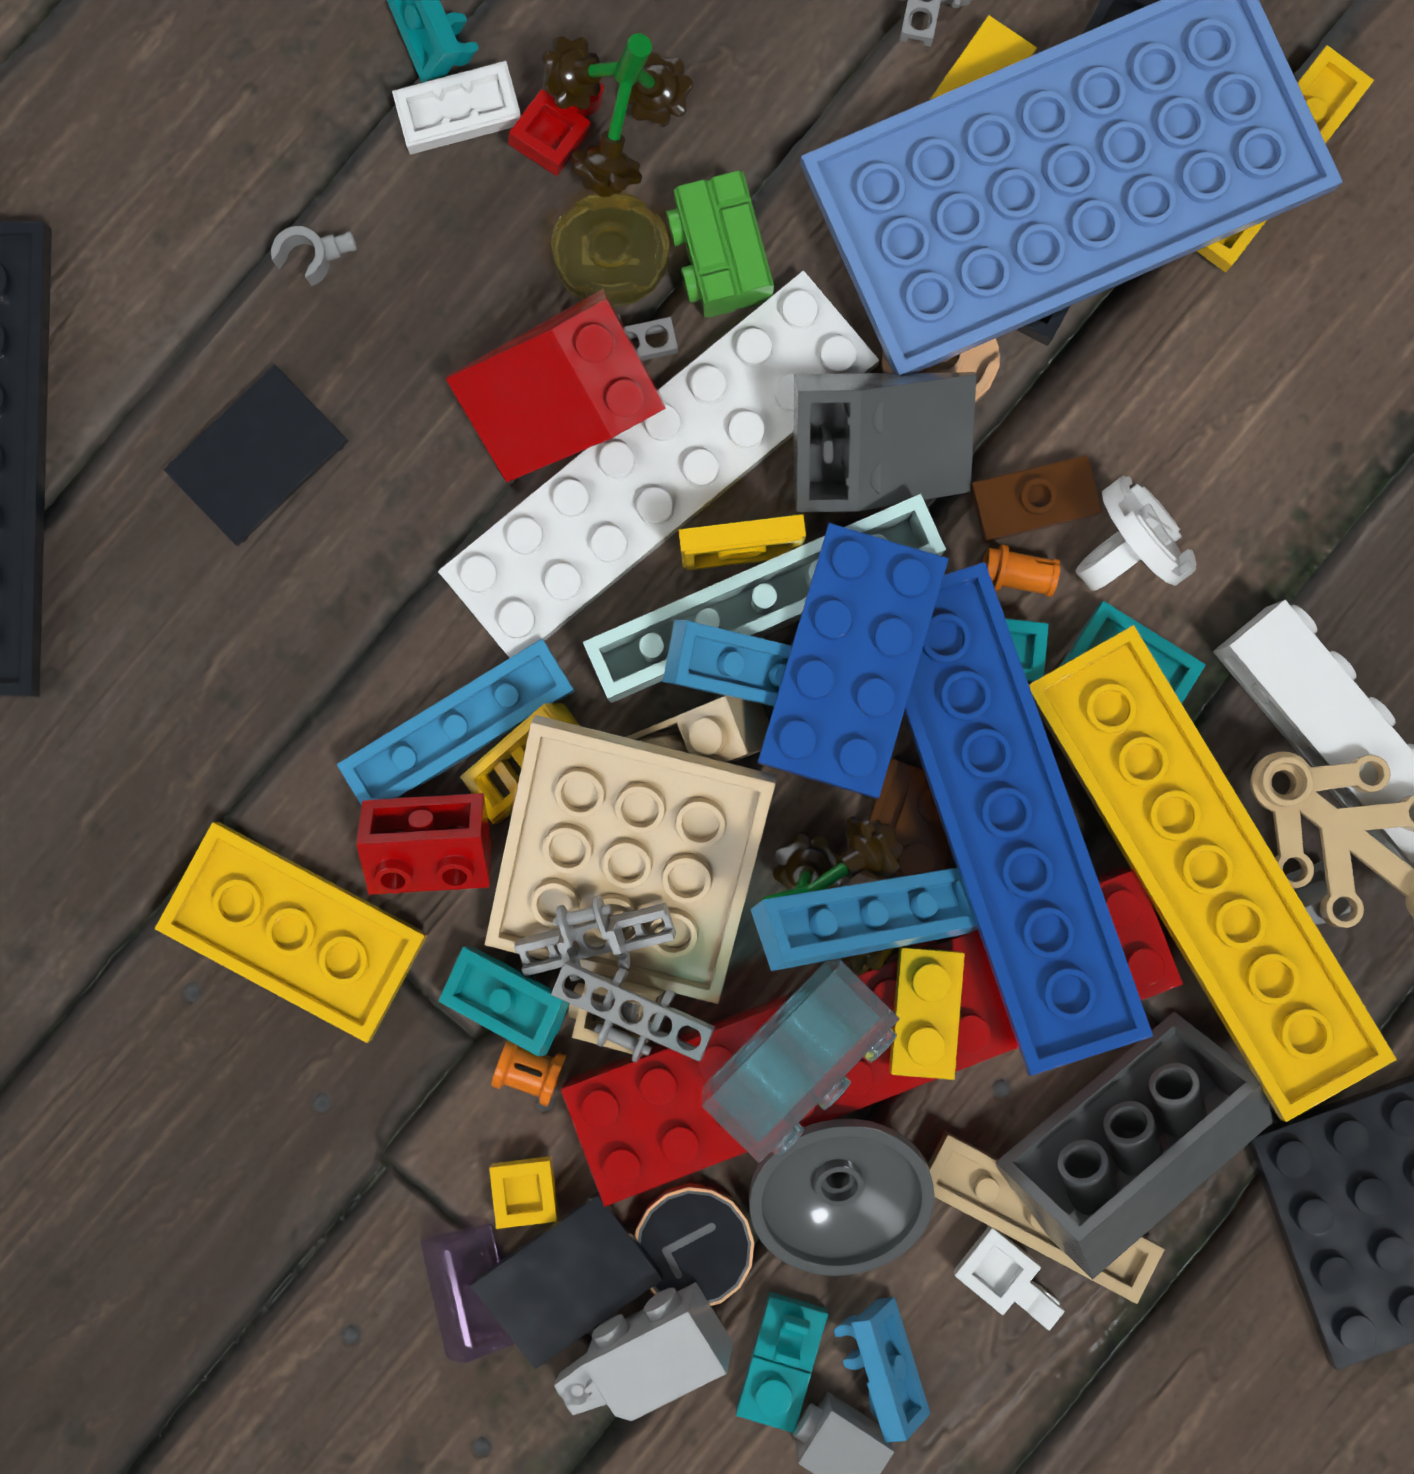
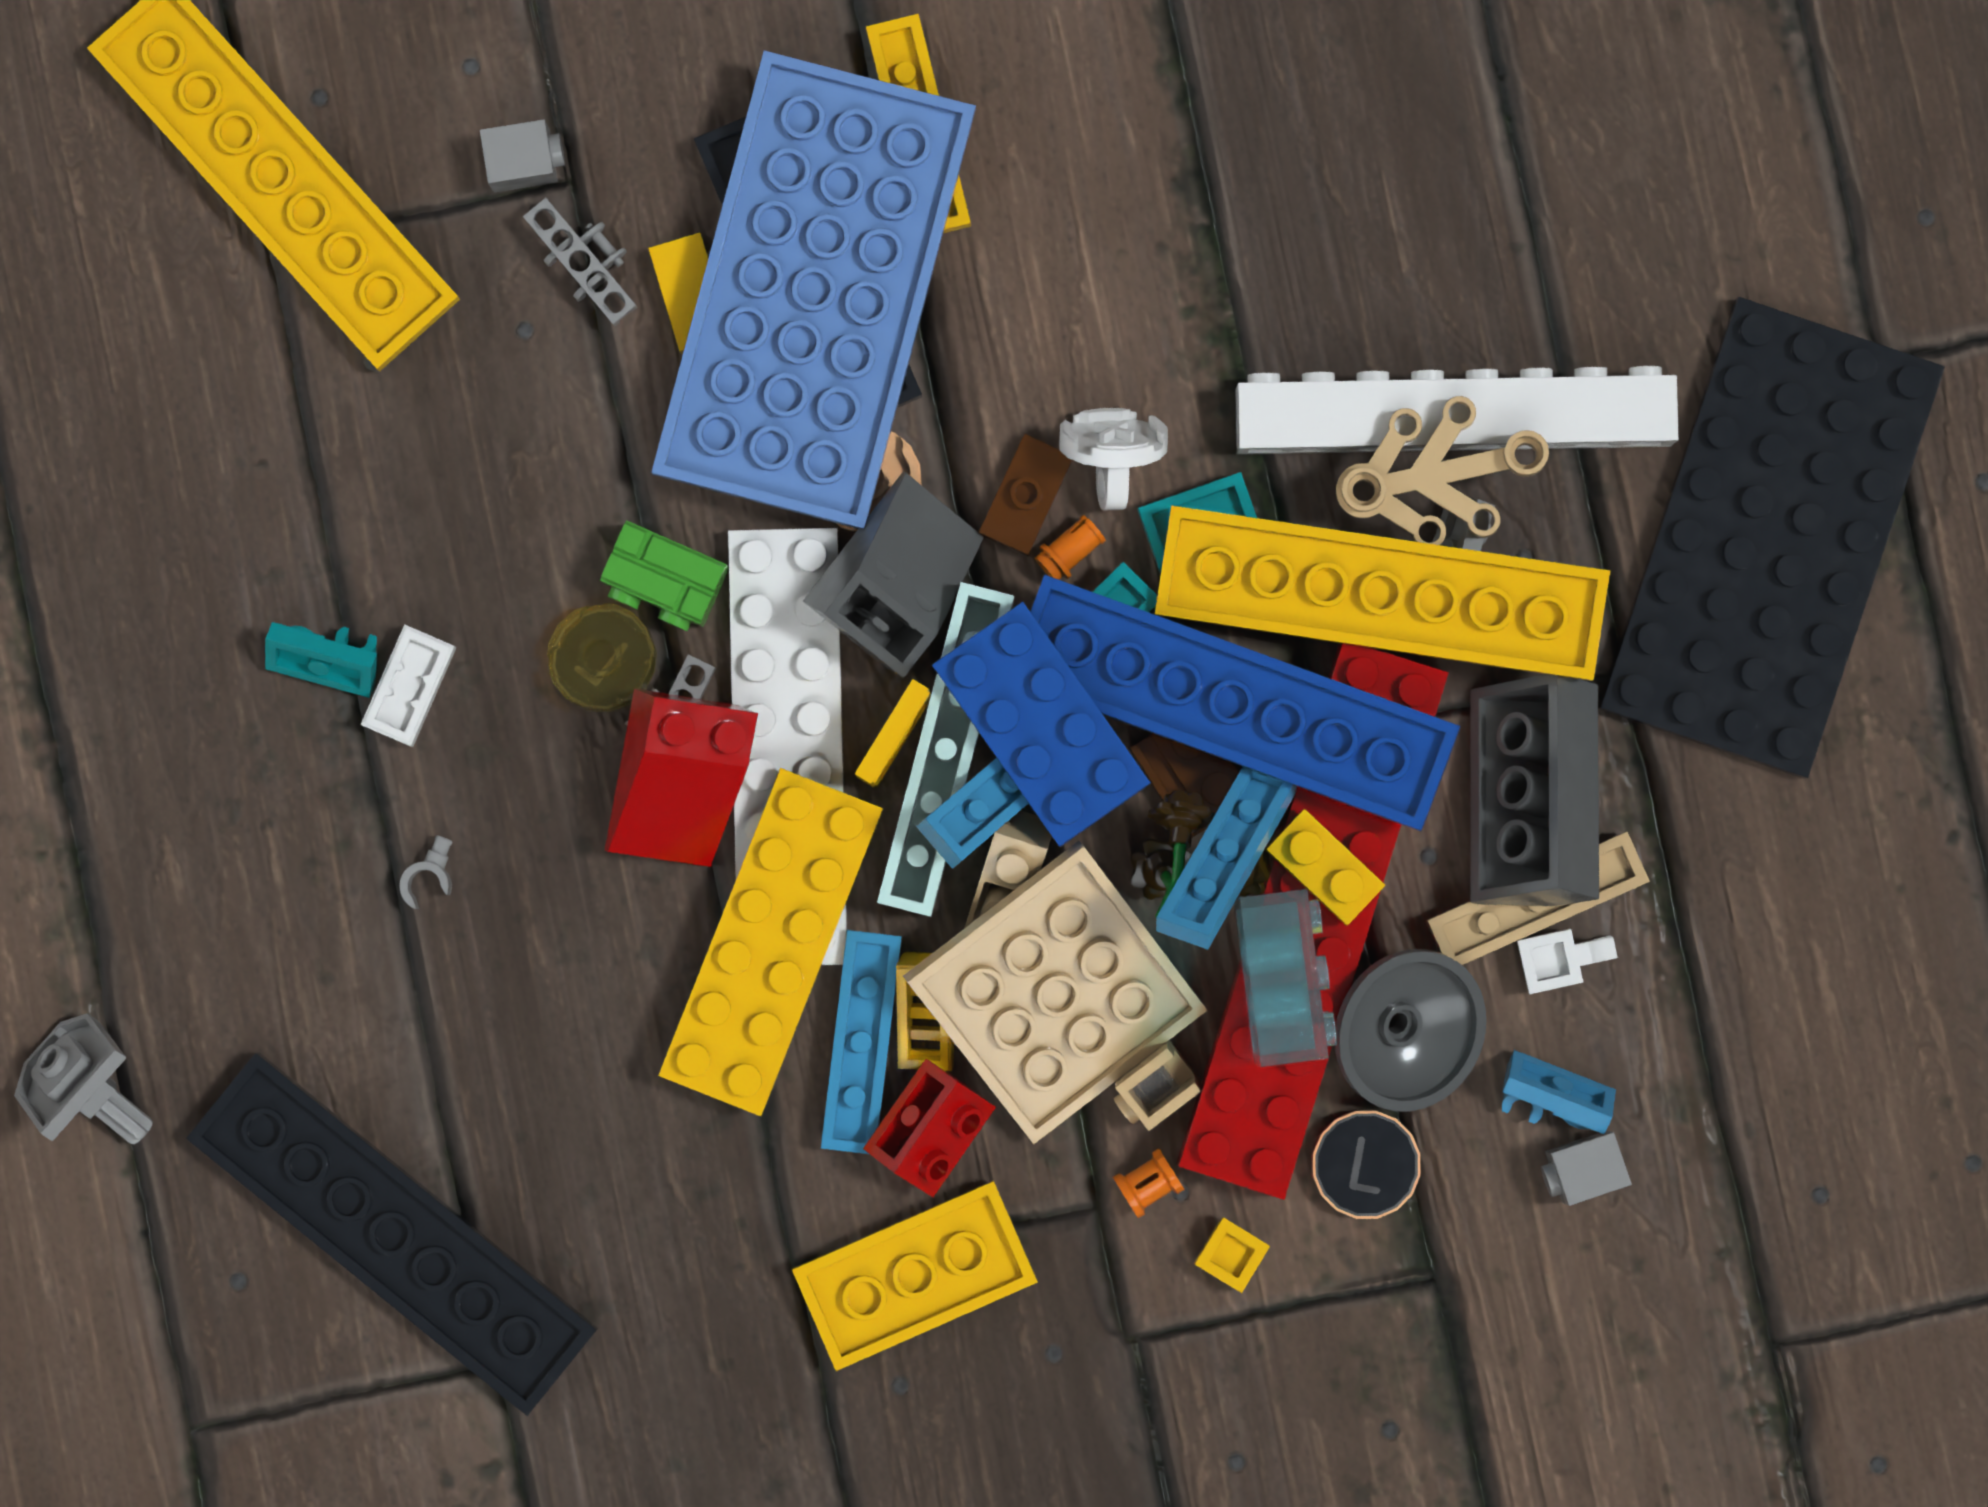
camera: 55 degrees left, 0 degrees up
(256, 455) = (544, 1033): black piece -> none
(463, 1319) = (1272, 1352): clear purple slope -> none
(478, 580) = (770, 942): none -> yellow plate
(504, 1001) = (1084, 1160): teal plate -> none
(552, 133) = (479, 627): red plate -> none
(566, 1280) = (1317, 1271): black piece -> none
(609, 928) = (1094, 1043): light grey piece -> none
(611, 1012) = (1151, 1085): light grey piece -> none
(644, 80) = (511, 535): dark brown plant -> none
(649, 1356) = (1414, 1255): light grey hinge -> none
(781, 1362) = (1496, 1166): teal plate -> none

